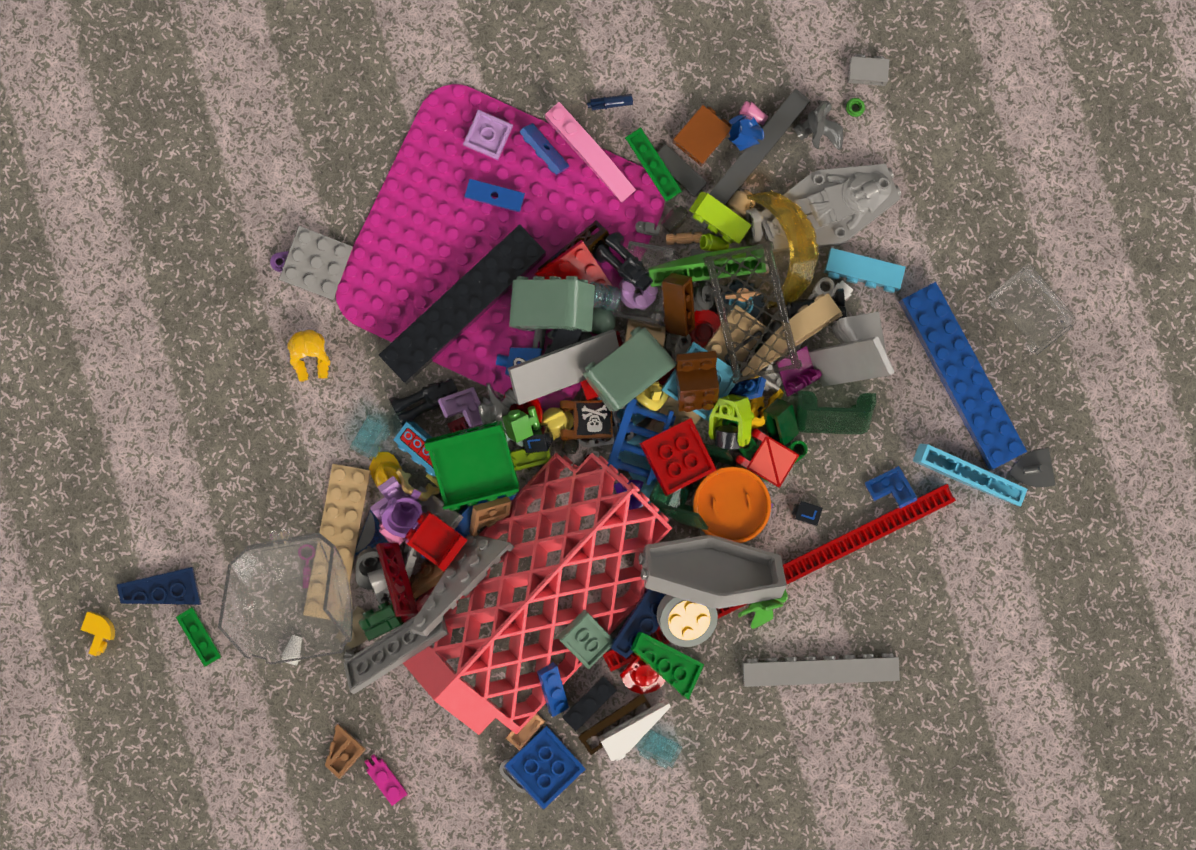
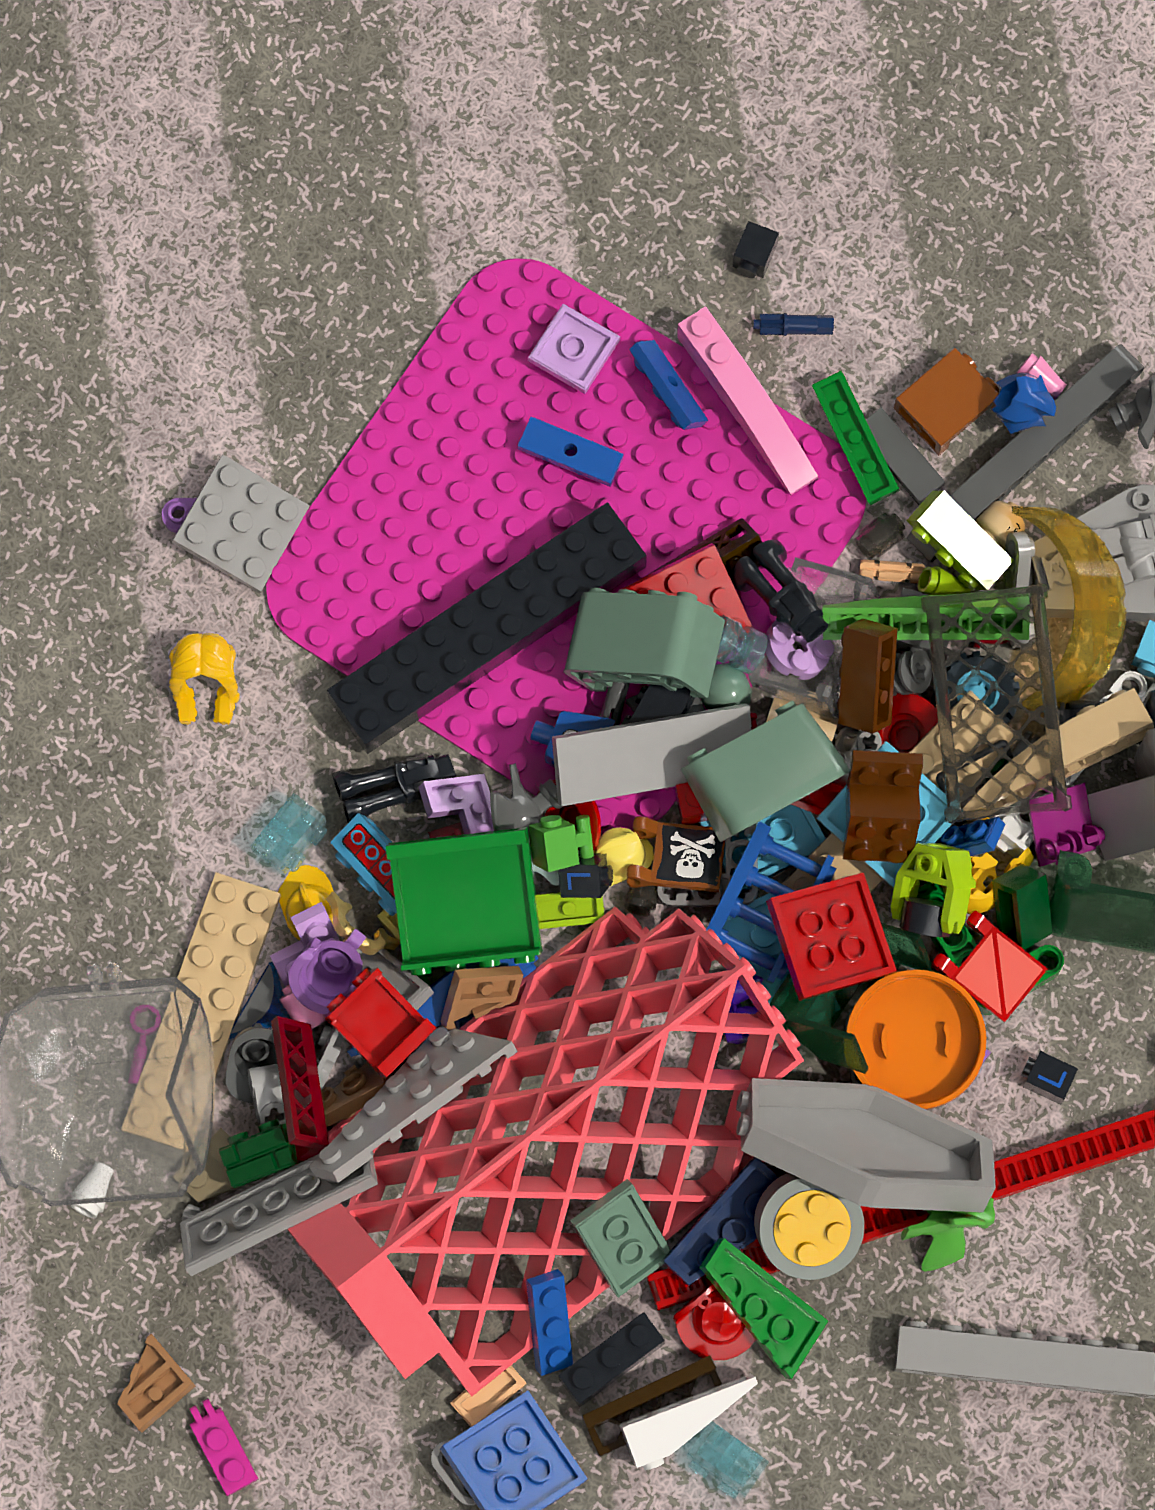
camera: 10 degrees right, 10 degrees down
(582, 62) = (755, 250): none -> black brick
(647, 228) = (829, 543): dark grey piece -> none
(653, 397) = (798, 827): light yellow piece -> none
(745, 294) = (987, 671): light nougat piece -> none

